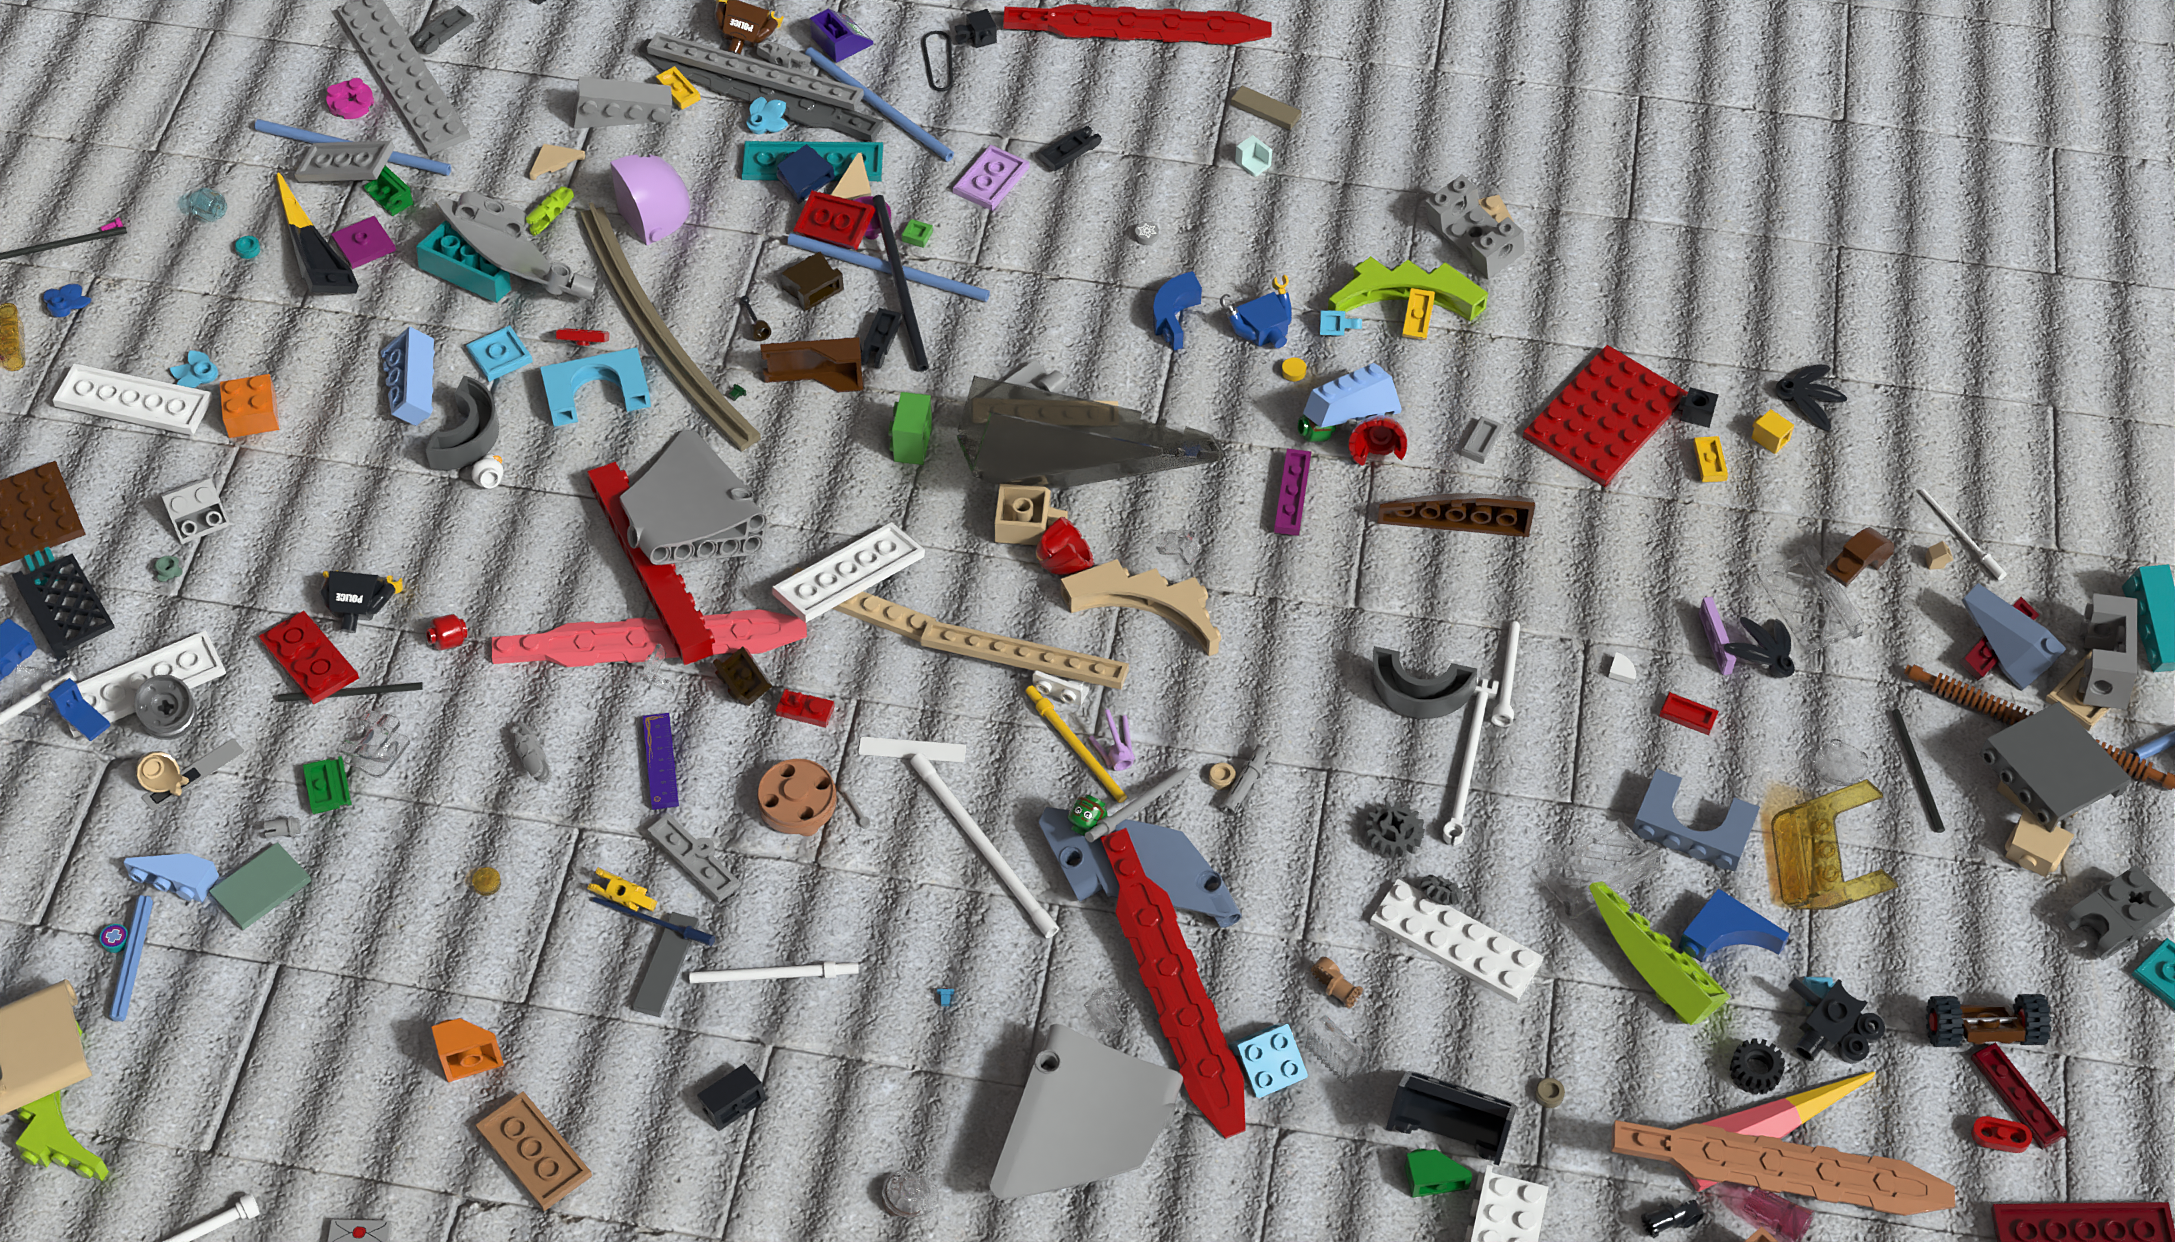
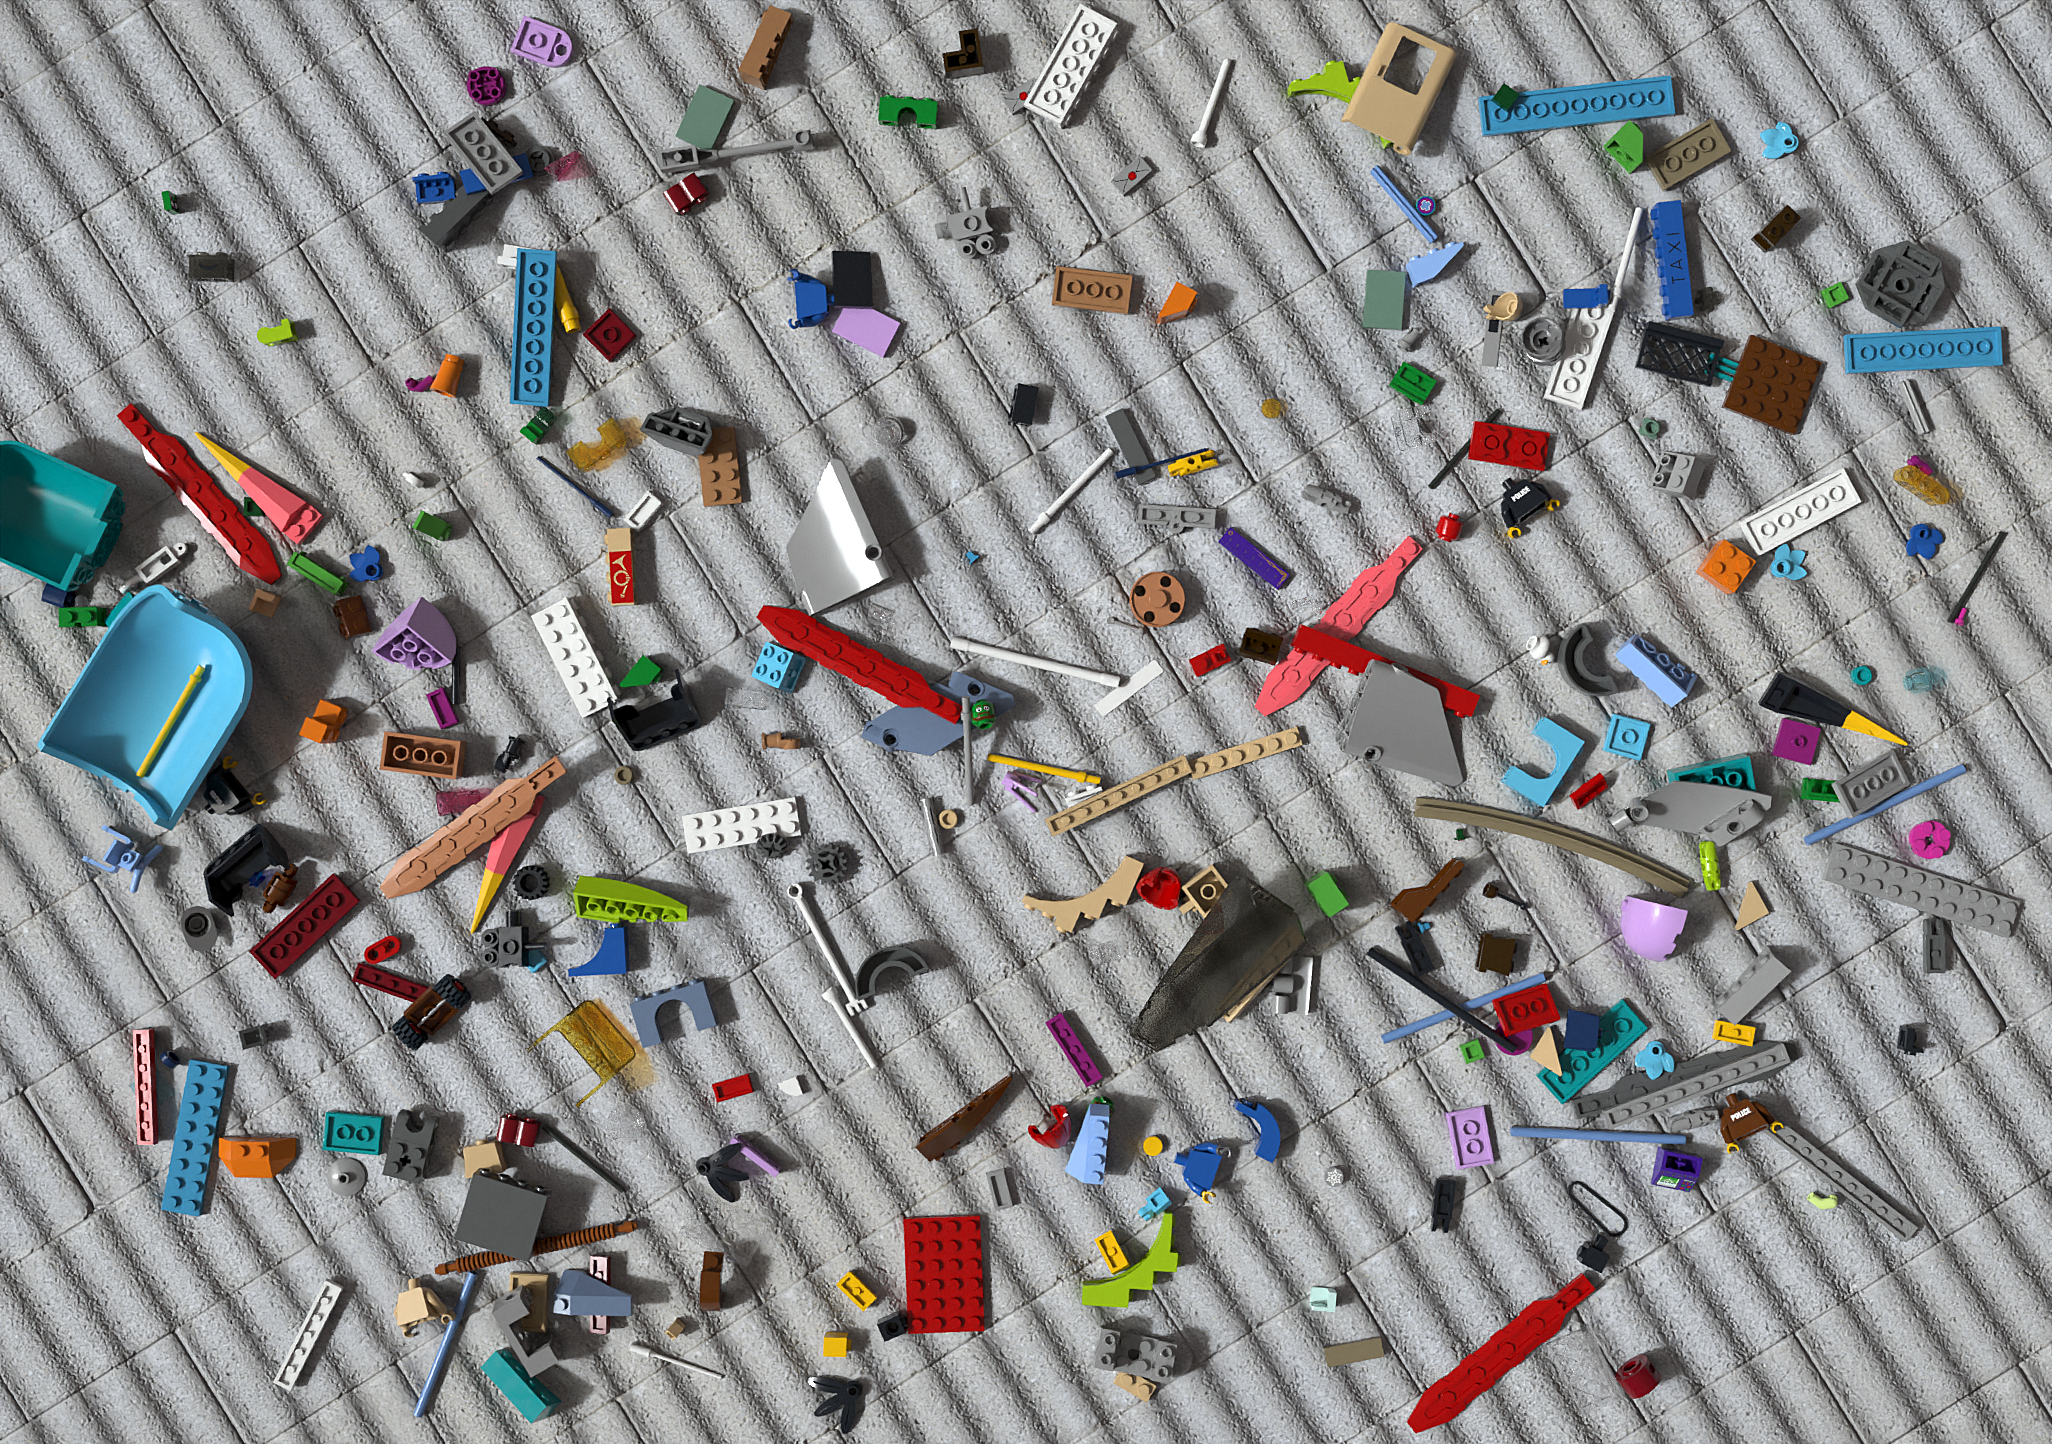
camera: 140 degrees right, 35 degrees up
(848, 572) = (1266, 762): white plate -> none
(1974, 842) = (518, 1130): none -> dark red brick

